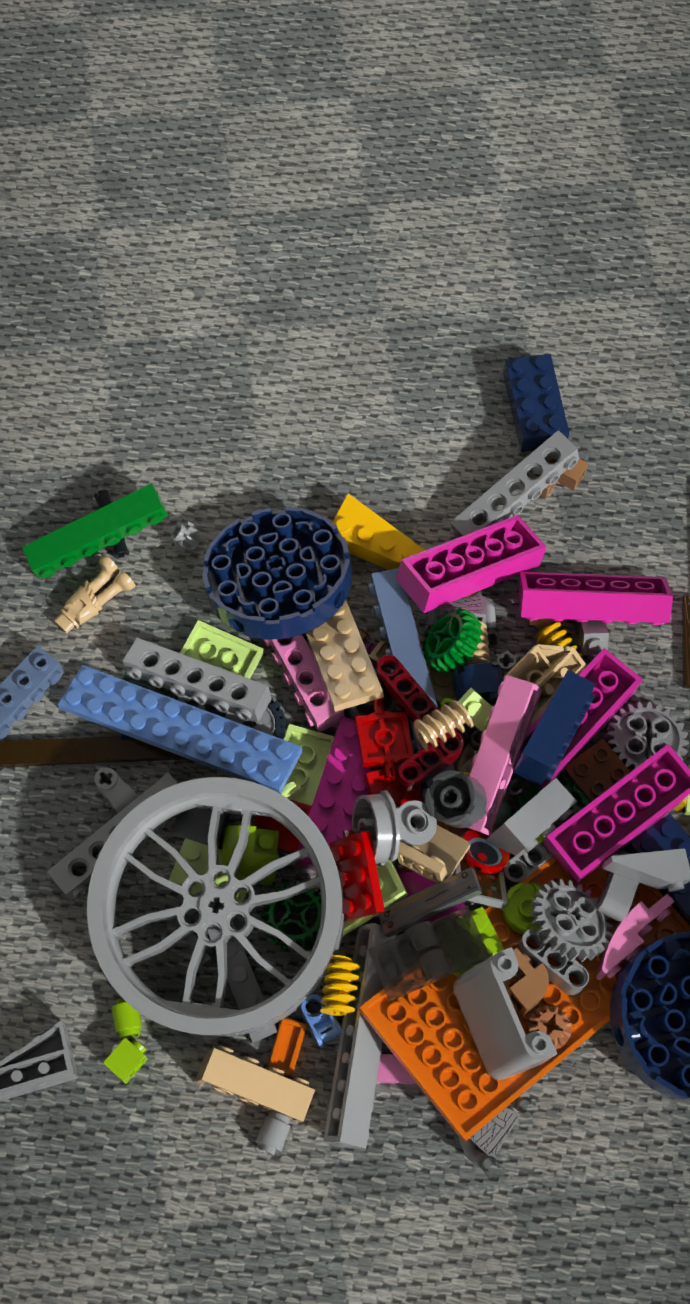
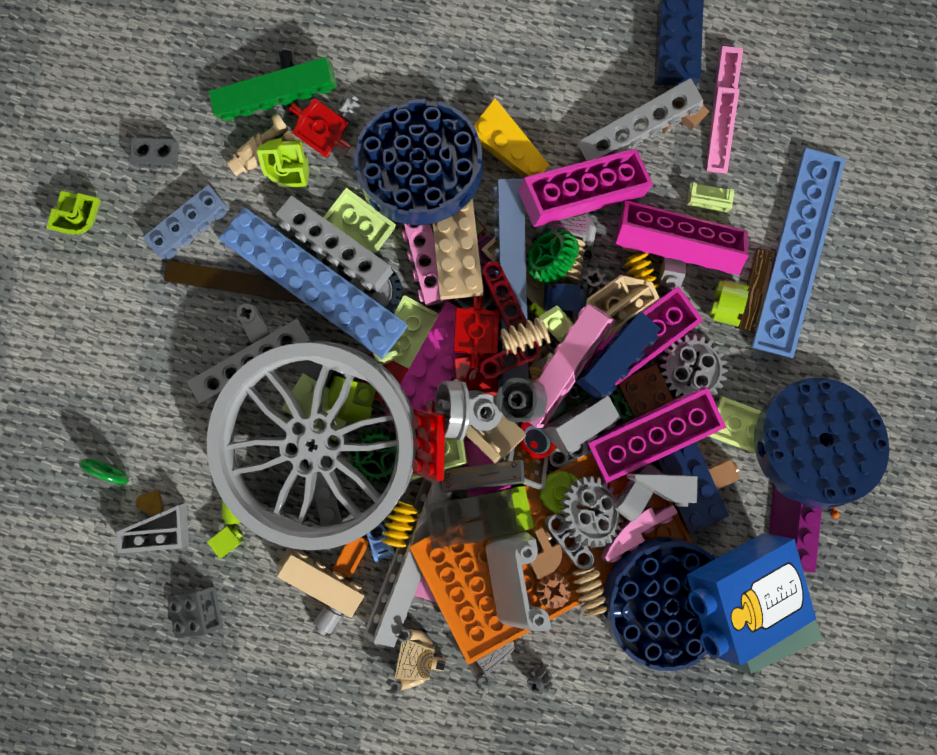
camera: 10 degrees right, 20 degrees up
(19, 1033) = (150, 502): none -> pearl gold tile
(99, 1162) = (195, 612): none -> dark grey bracket
(122, 606) = (284, 162): none -> lime brick
(156, 562) = (320, 127): none -> red plate
(396, 1162) = (414, 660): none -> torso
(560, 1154) = (539, 679): none -> dark grey gear
(592, 1015) = (590, 591): none -> tan piece
(604, 462) = (724, 109): none -> bright pink slope
(614, 554) = (710, 197): none -> yellowish green hinge
(667, 657) = (730, 302): none -> lime brick

